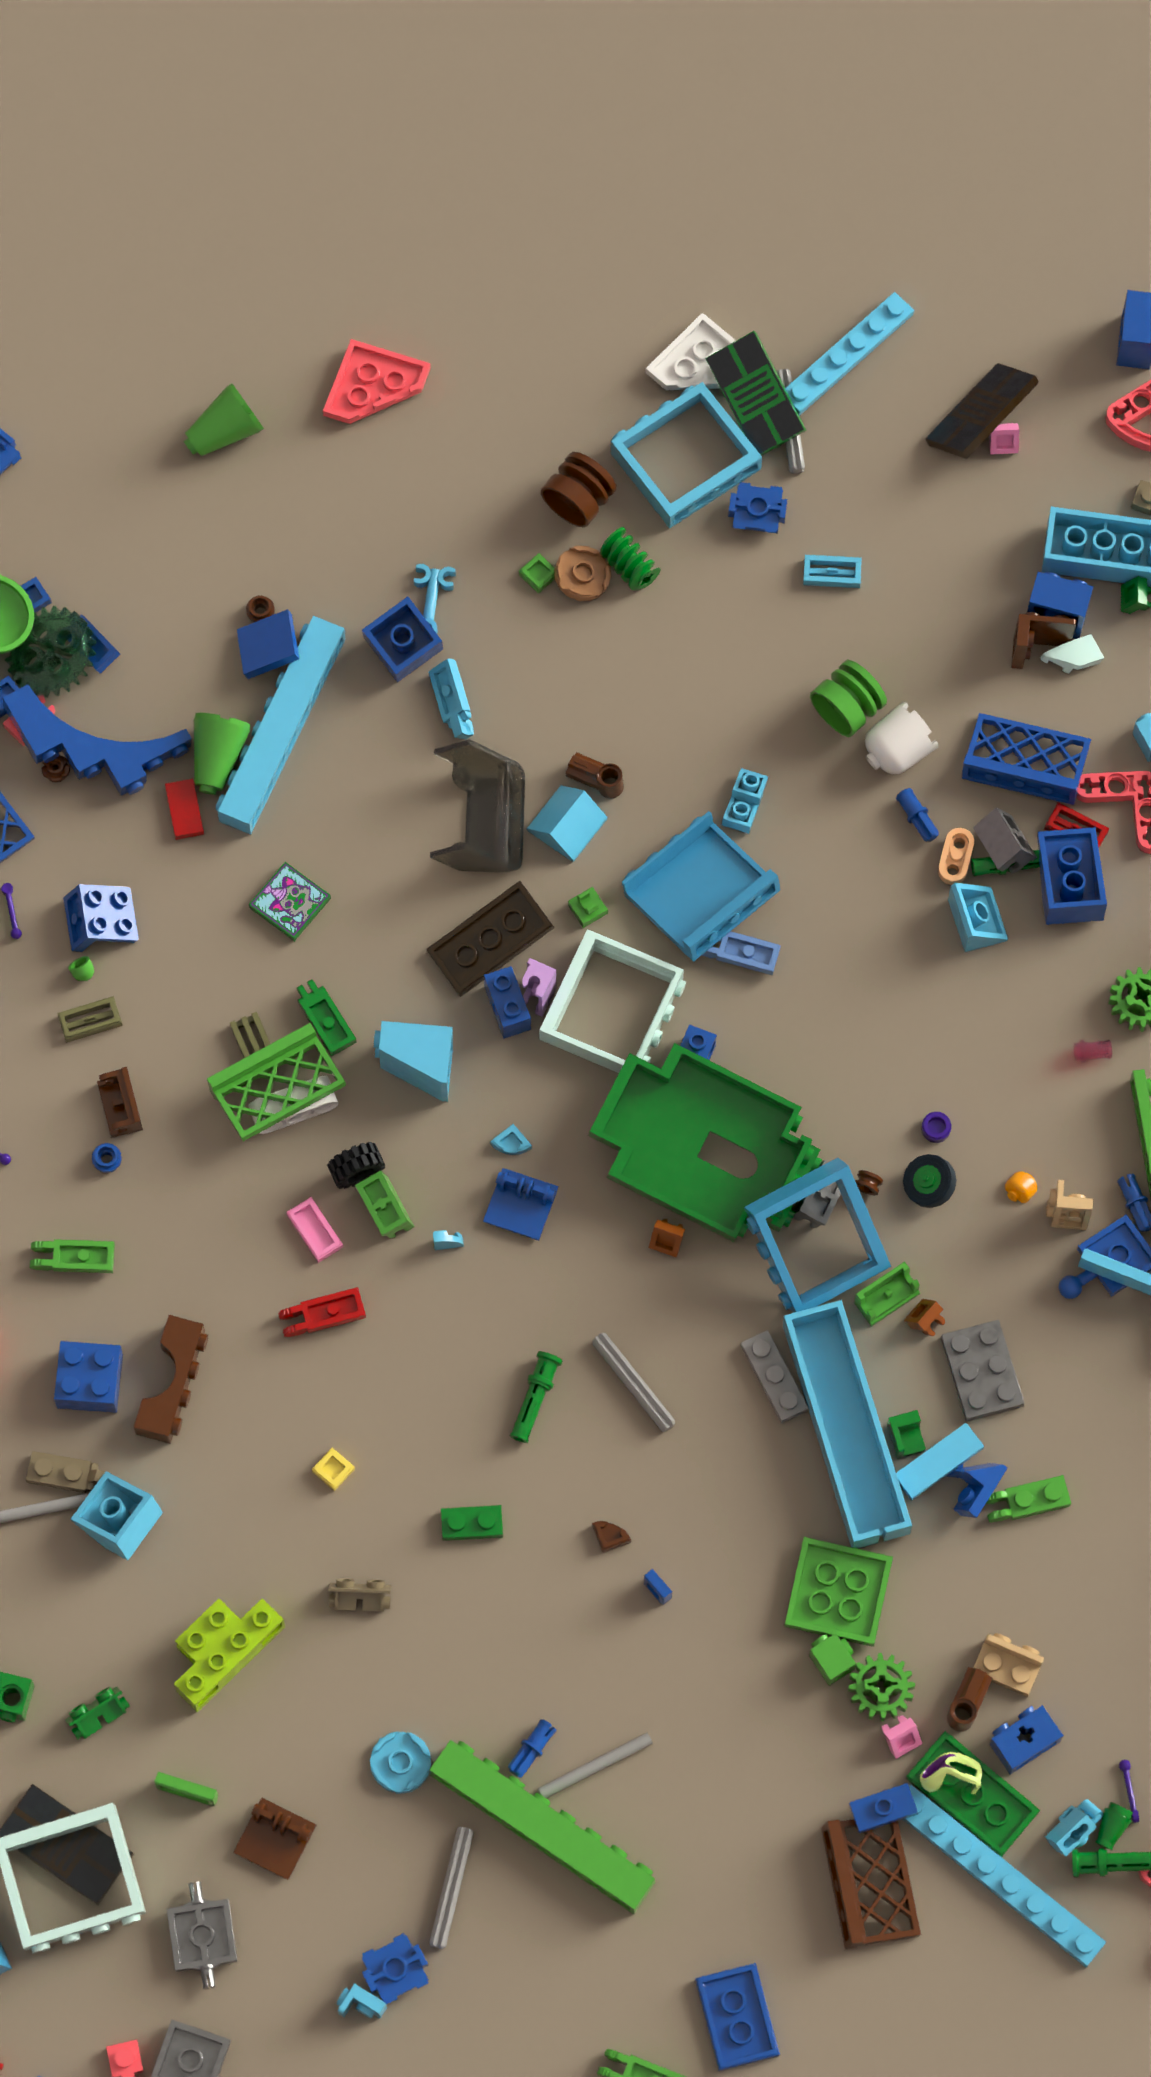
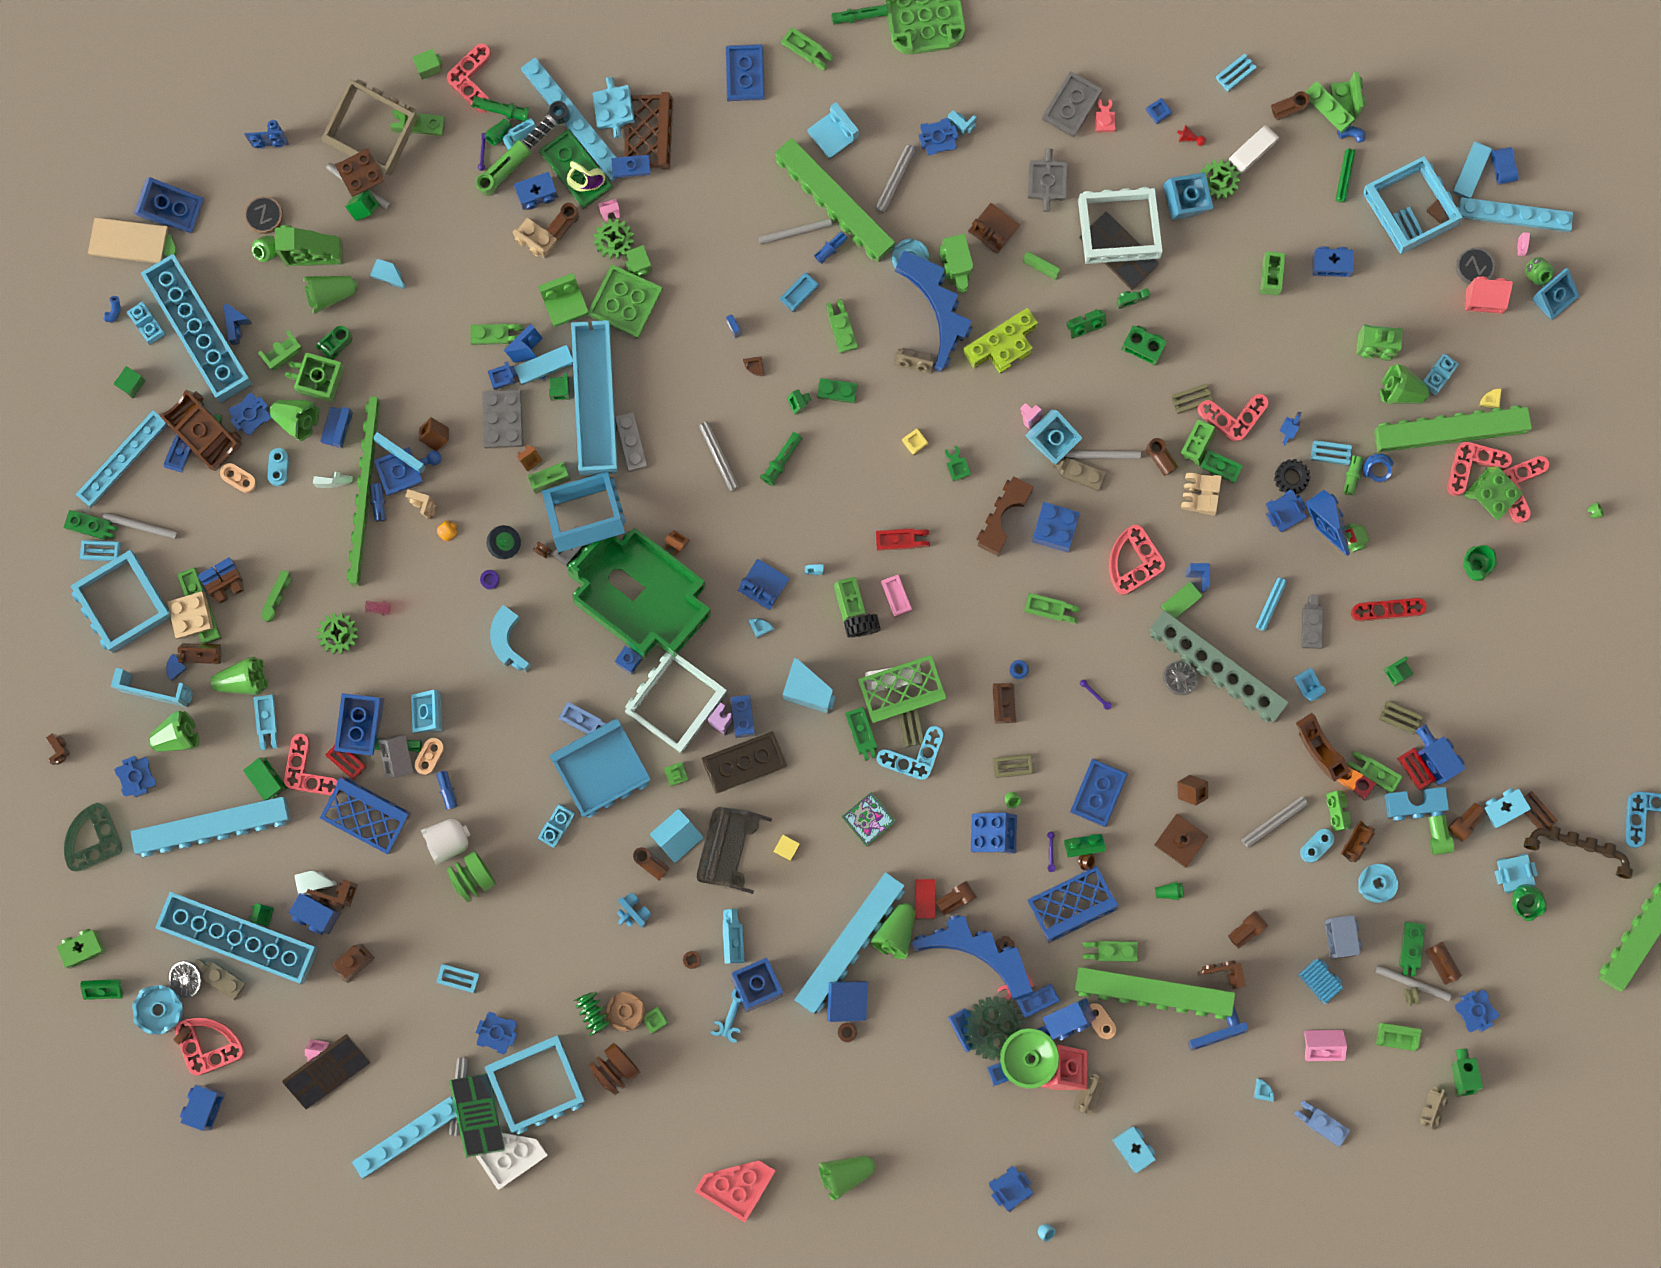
camera: 165 degrees left, 10 degrees up
(34, 1764) = (1128, 298): none -> green plate
(134, 820) = (958, 896): none -> reddish brown piece
(159, 1544) = (1031, 415): none -> bright pink tile
(230, 993) = (921, 759): none -> medium azure beam
(258, 1441) = (957, 467): none -> green plate
(321, 1758) = (957, 261): none -> bright green hinge
(363, 1724) = (951, 325): none -> blue arch
(402, 838) = (786, 847): none -> light yellow tile
(485, 1622) = (841, 328): none -> bright green hinge
(498, 655) = (689, 954): none -> reddish brown bush
(528, 1489) = (798, 401): none -> green tile
(566, 1668) = (799, 292): none -> dark azure tile
(569, 1941) = (834, 131): none -> medium azure bracket
(607, 700) = (640, 917): none -> dark azure hips
(894, 1035) = (499, 635): none -> medium azure arch
(932, 1566) = (563, 300): none -> bright green bracket
(937, 1907) = (613, 107): none -> medium azure plate
(990, 553) = (353, 962): none -> reddish brown torso
(999, 1432) = (502, 376): none -> blue bracket
(1065, 1798) = (521, 150): none -> piece
(1081, 1322) = (433, 434): none -> reddish brown panel

